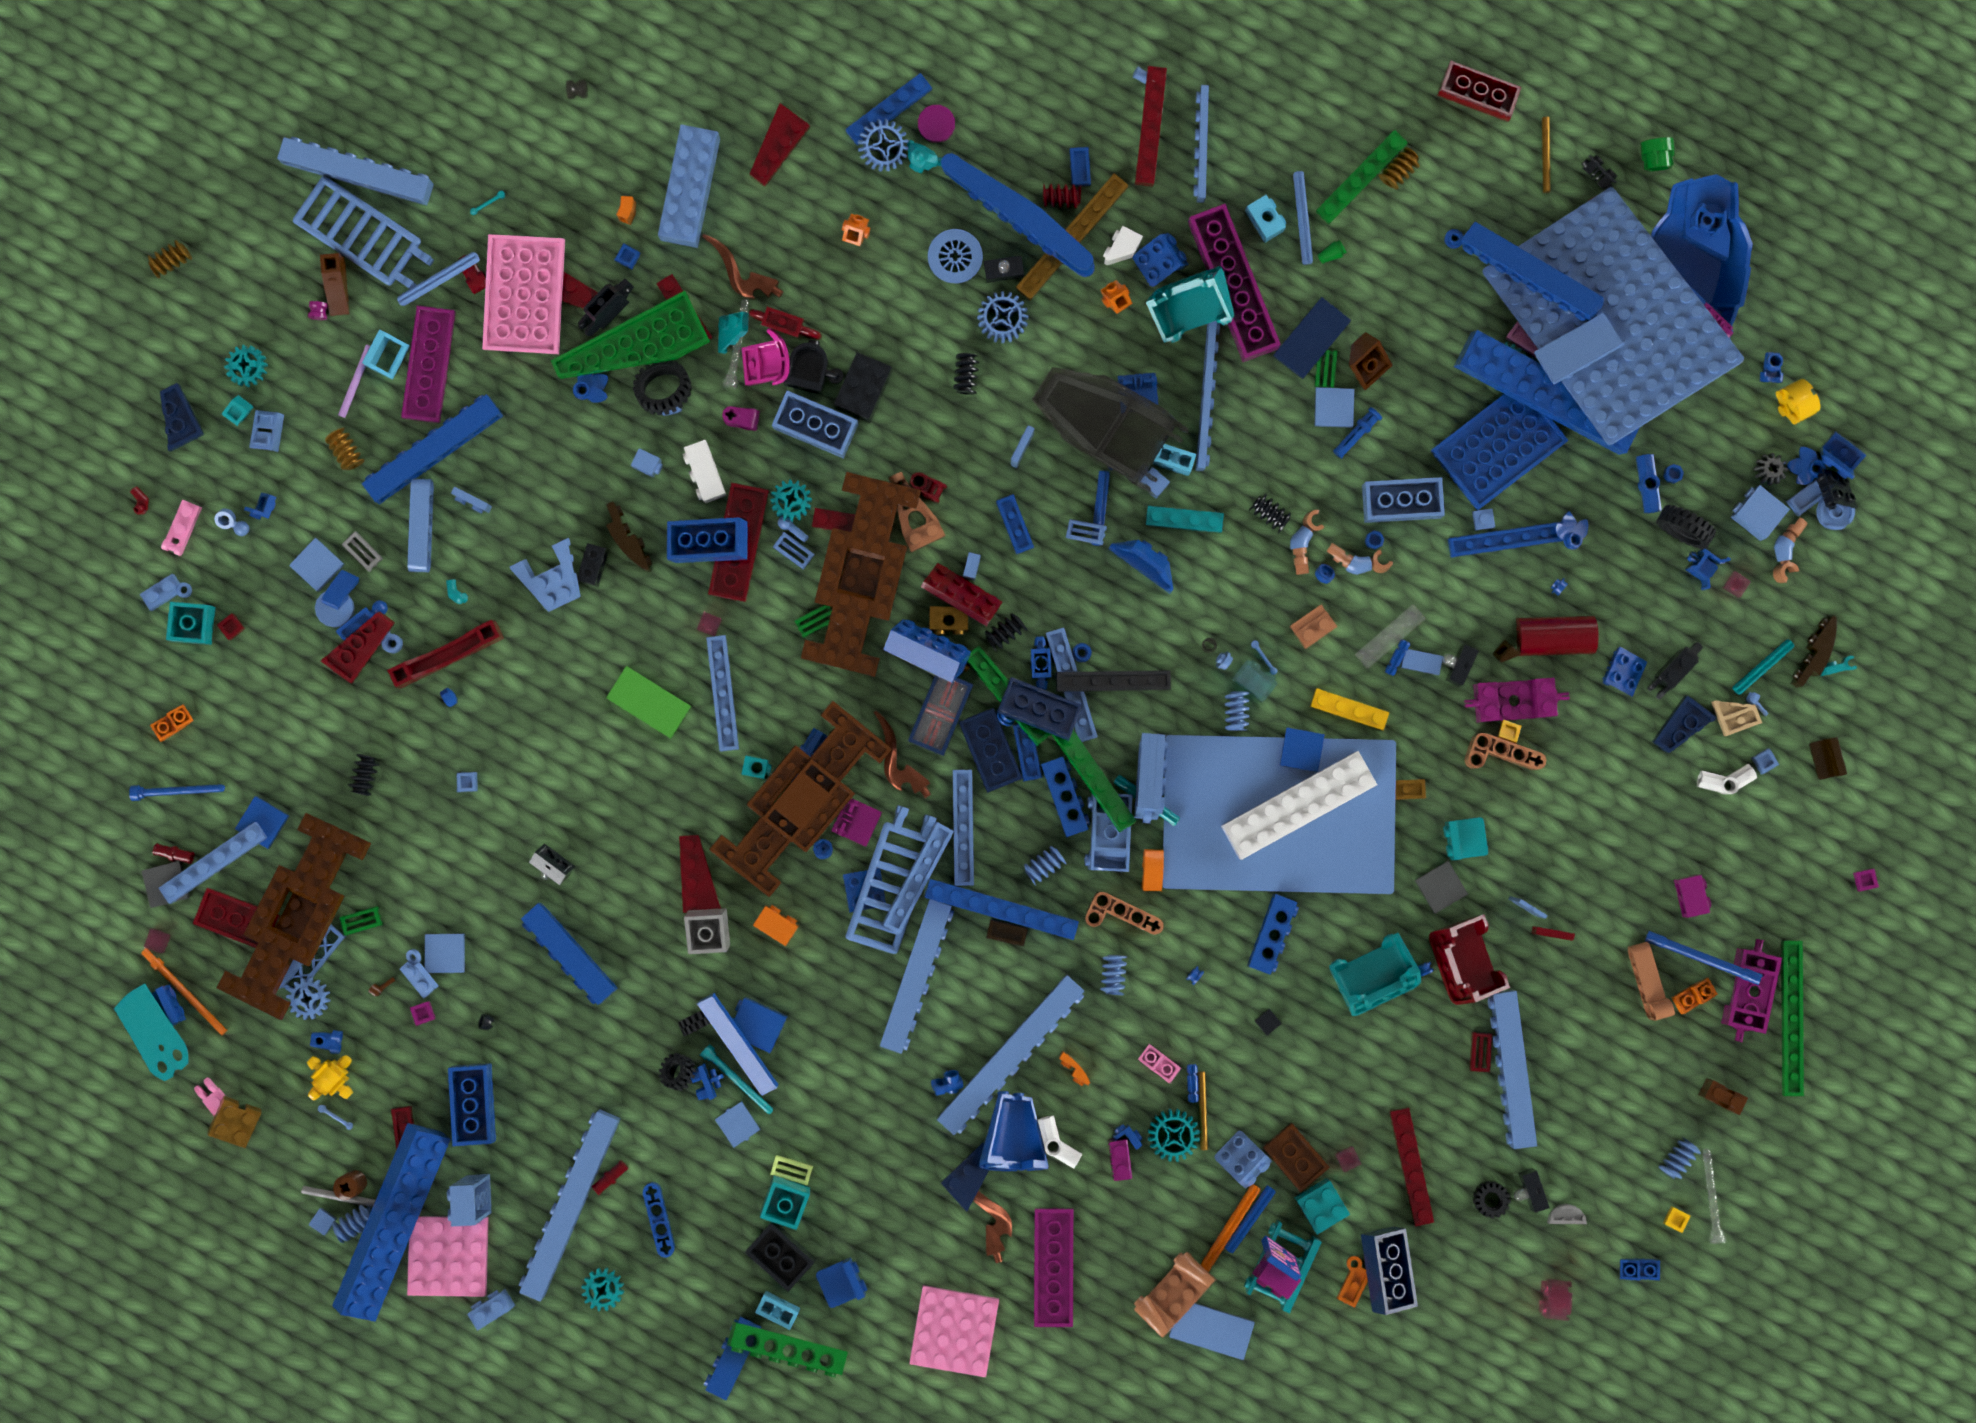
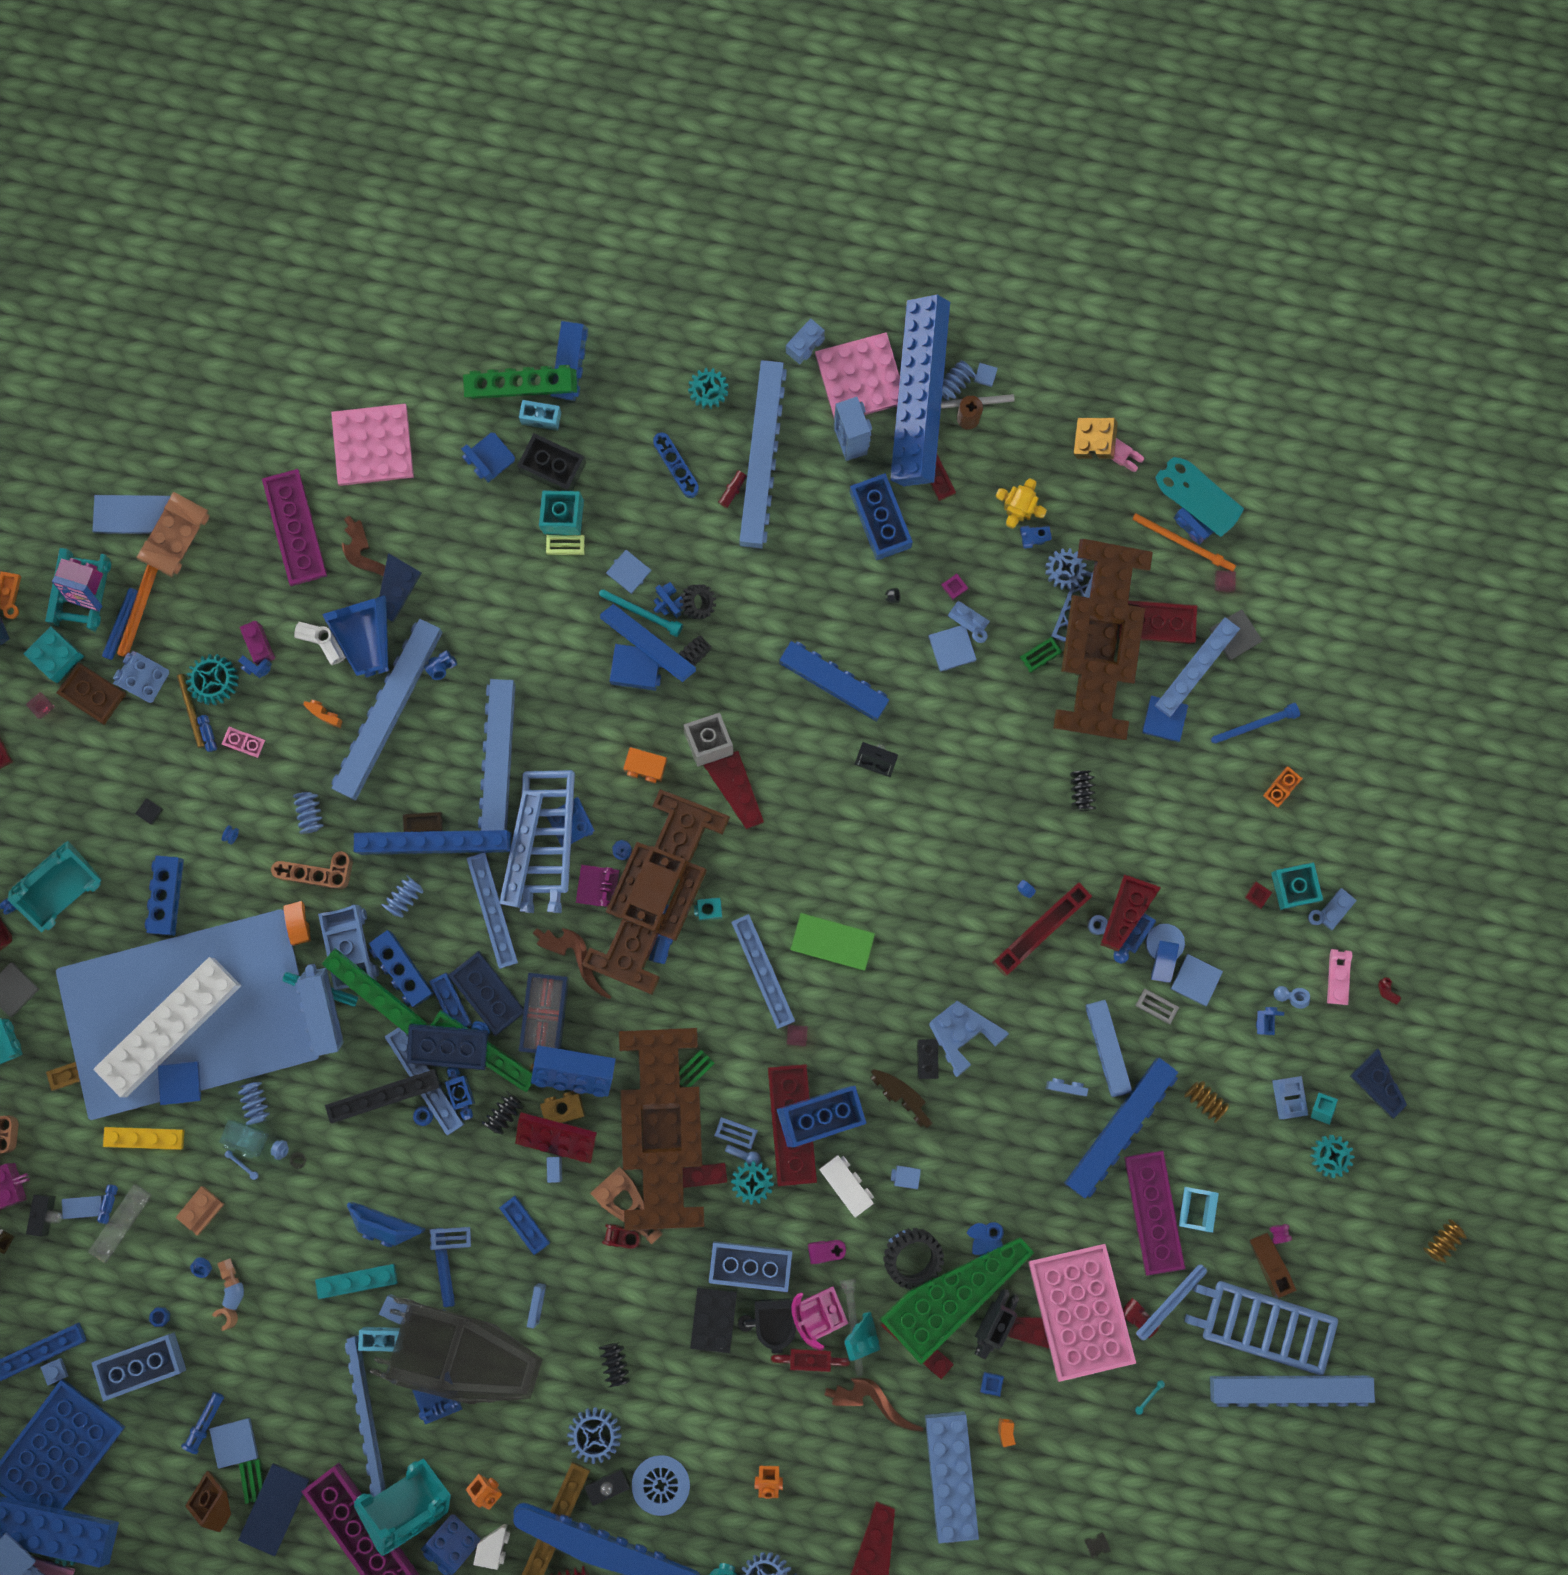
camera: 165 degrees right, 5 degrees down
(173, 853) = (1237, 665): dark red pin -> none
(322, 1108) = (1020, 474): medium blue hinge -> none
(353, 385) = (1220, 1171): lavender bar -> none
(375, 990) = (1005, 595): reddish brown hand -> none
(454, 594) = (1053, 990): teal arm -> none
(467, 782) = (983, 814): medium blue tile -> none
(1271, 512) = (269, 1314): black piece -> none
(1358, 565) = (170, 1286): nougat piece -> none

